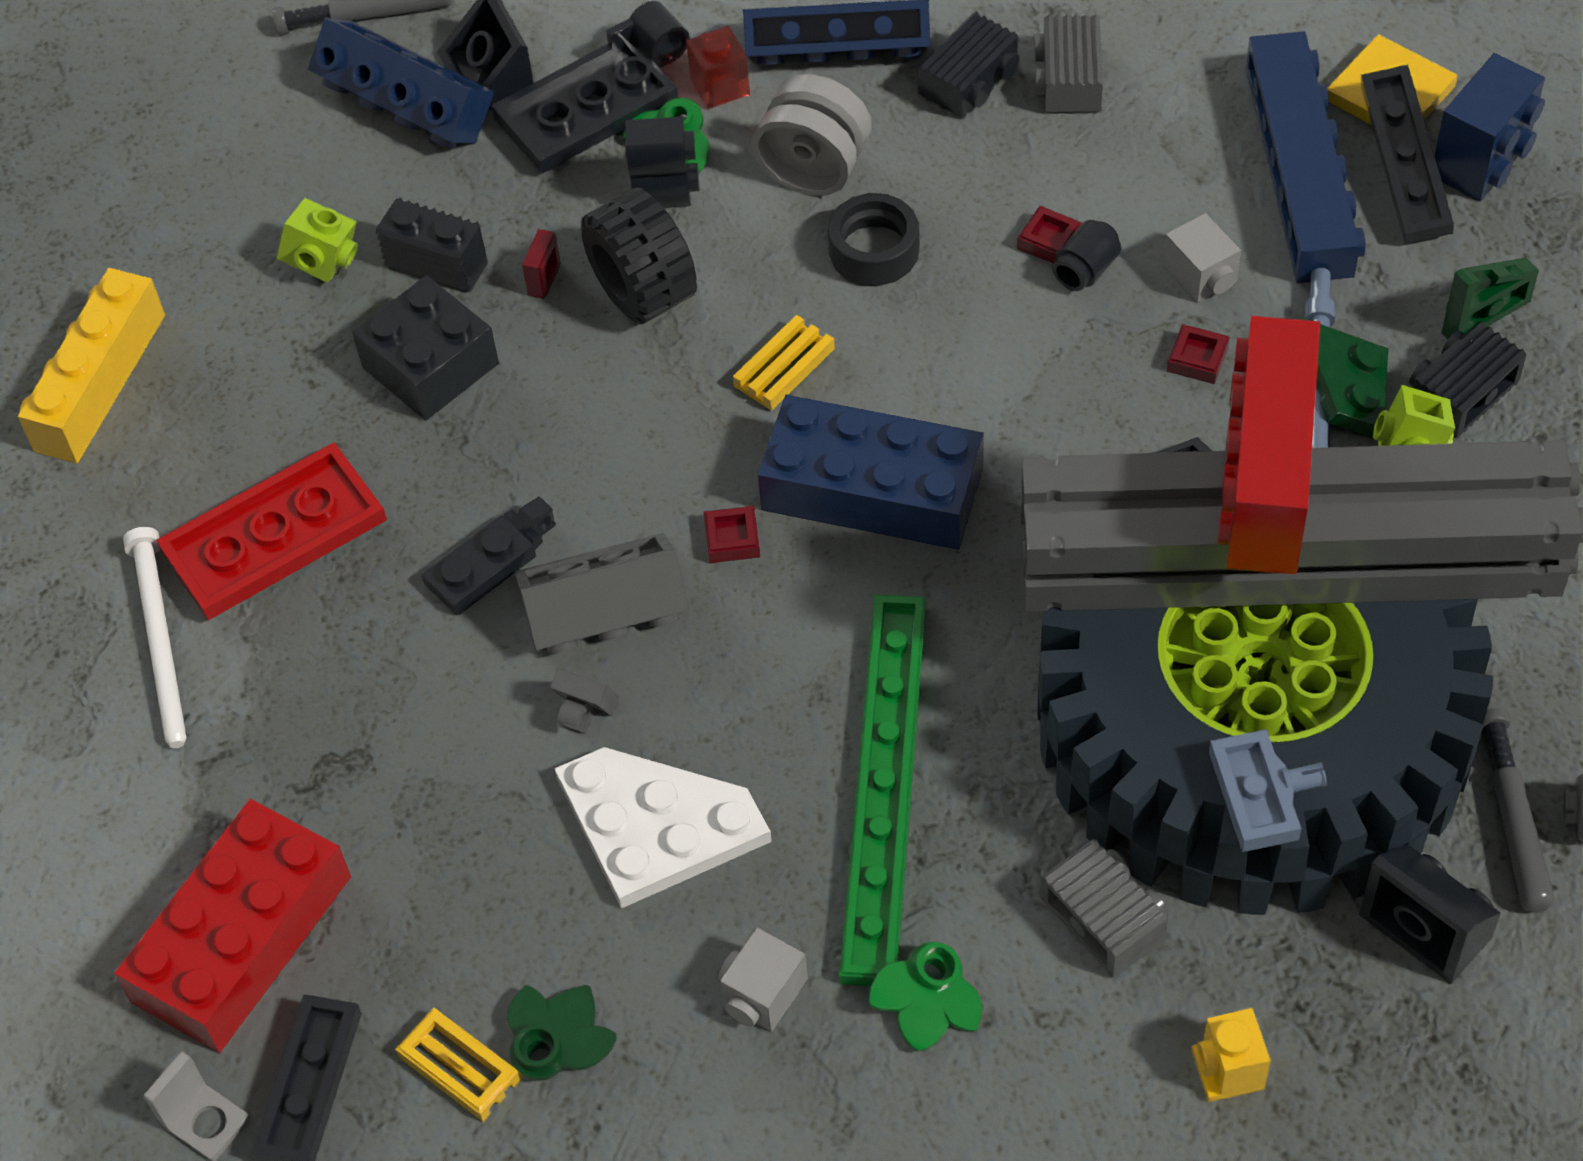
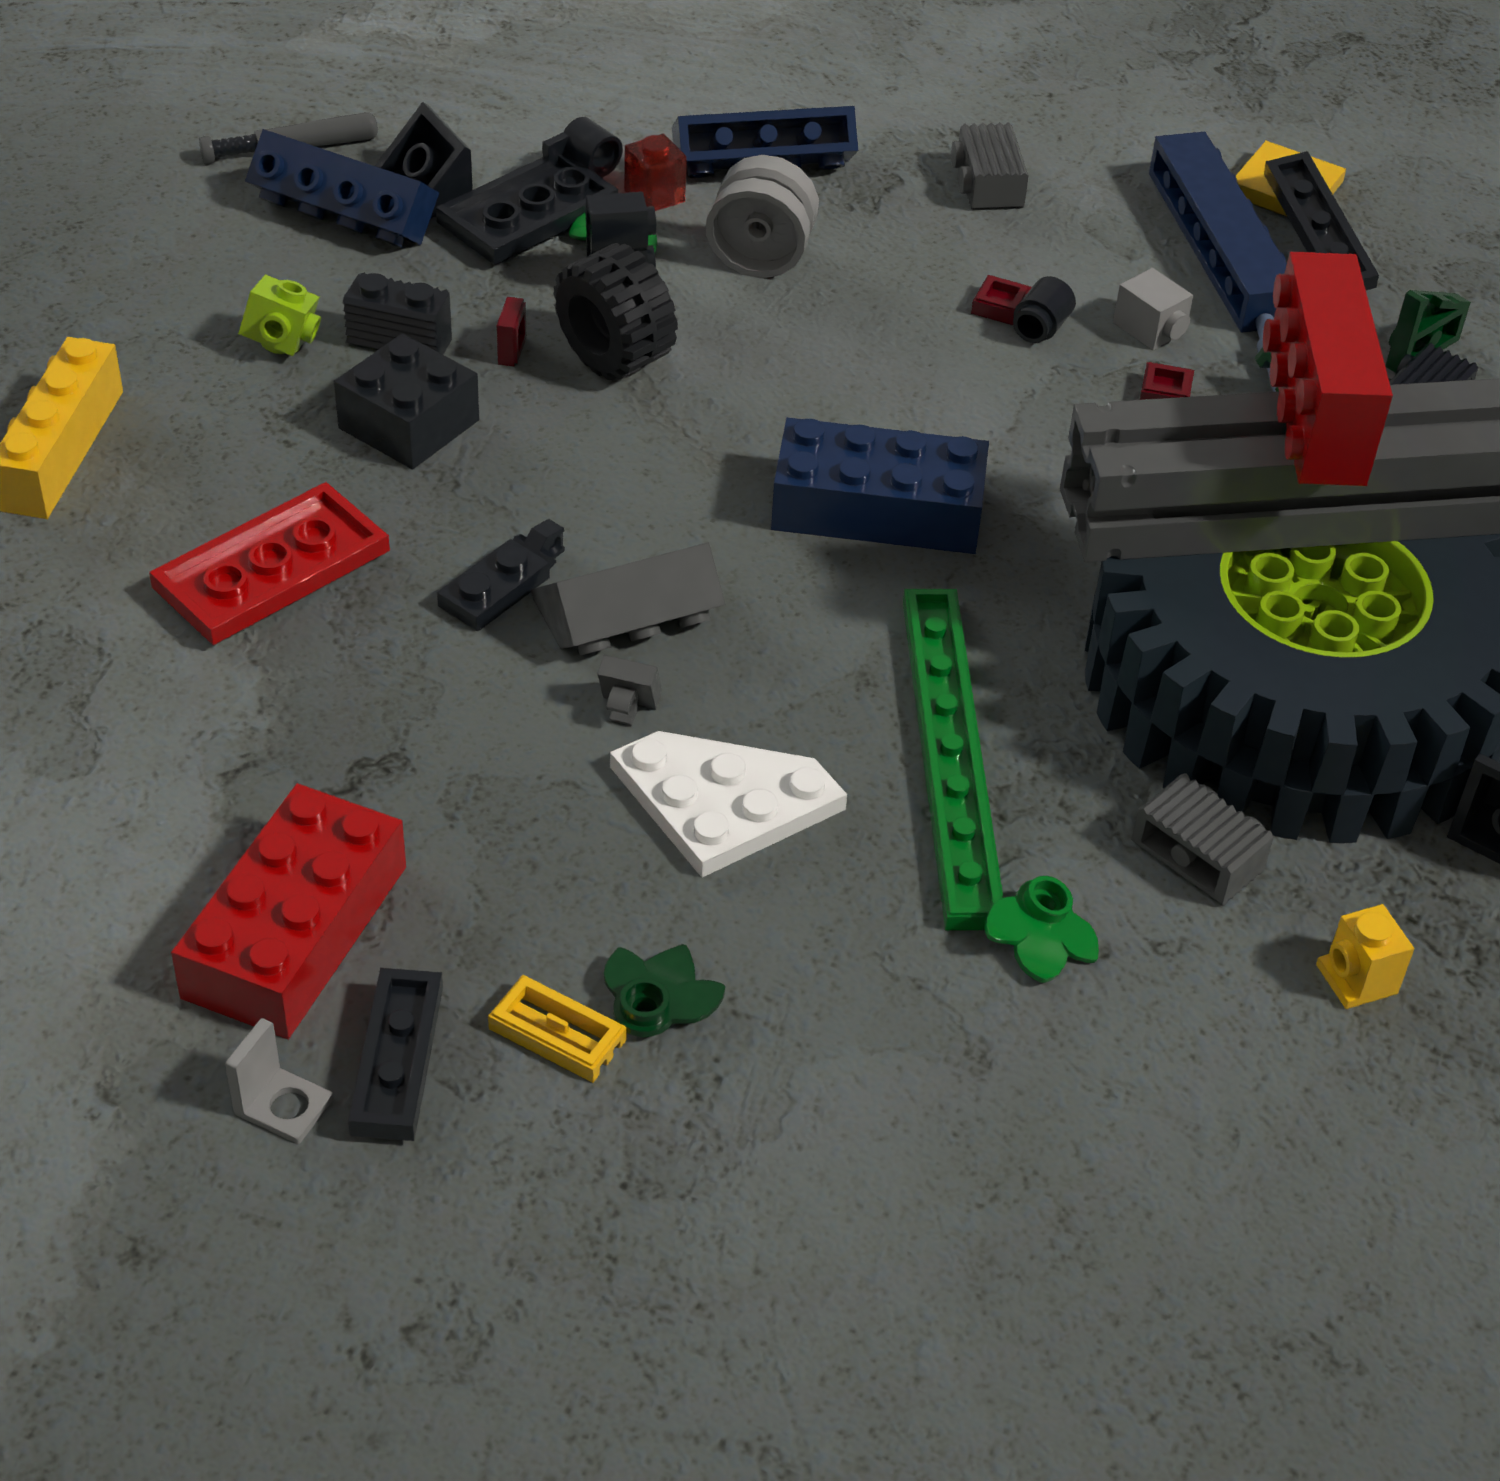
camera: 15 degrees left, 10 degrees down
(143, 546) = (133, 581): white bar -> none
(731, 534) = (747, 548): dark red tile -> none
(762, 980) = (870, 923): light grey brick -> none
(777, 358) = (760, 405): yellow tile -> none
(873, 267) = (835, 325): black tyre -> none
(968, 65) = (894, 169): black brick -> none
(1260, 789) = (1361, 689): sand blue plate -> none
(1489, 126) = (1394, 195): dark blue brick -> none

